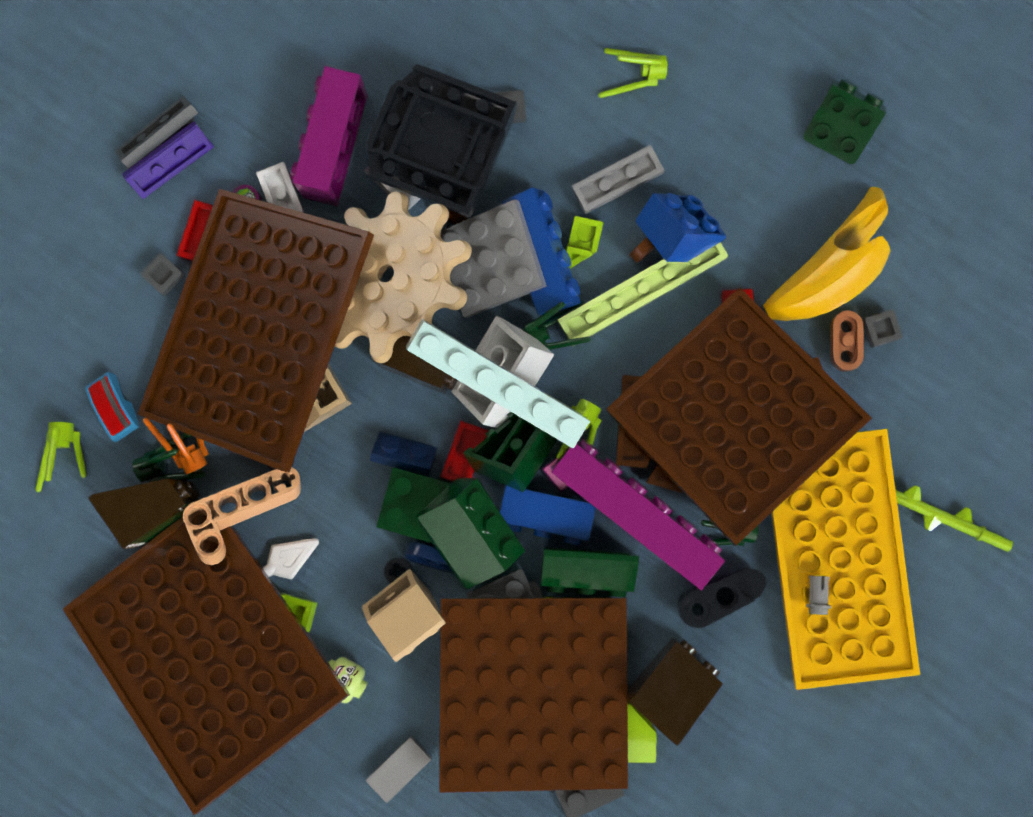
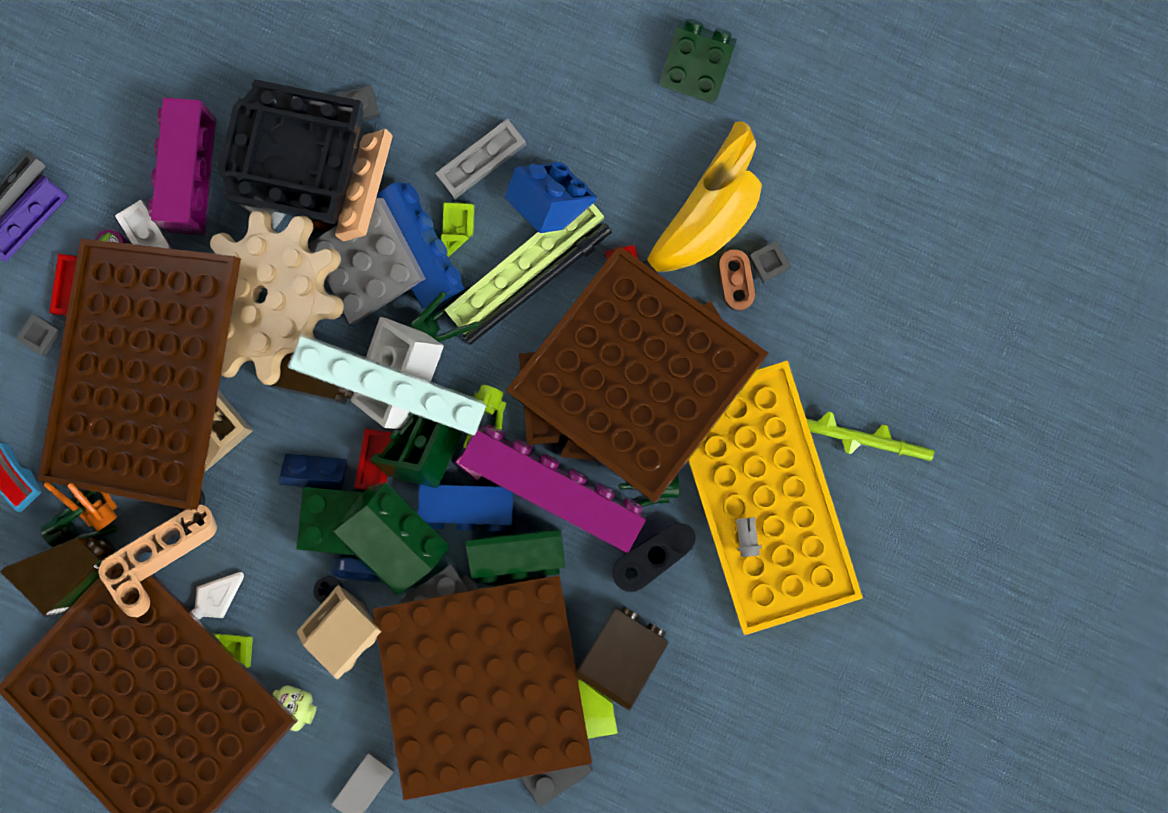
camera: 15 degrees left, 0 degrees up
(502, 185) = (363, 185): none -> light nougat plate
(642, 250) = (516, 226): reddish brown tile -> none
(652, 67) = (496, 39): lime plant -> none
(702, 283) = (583, 247): none -> black bar

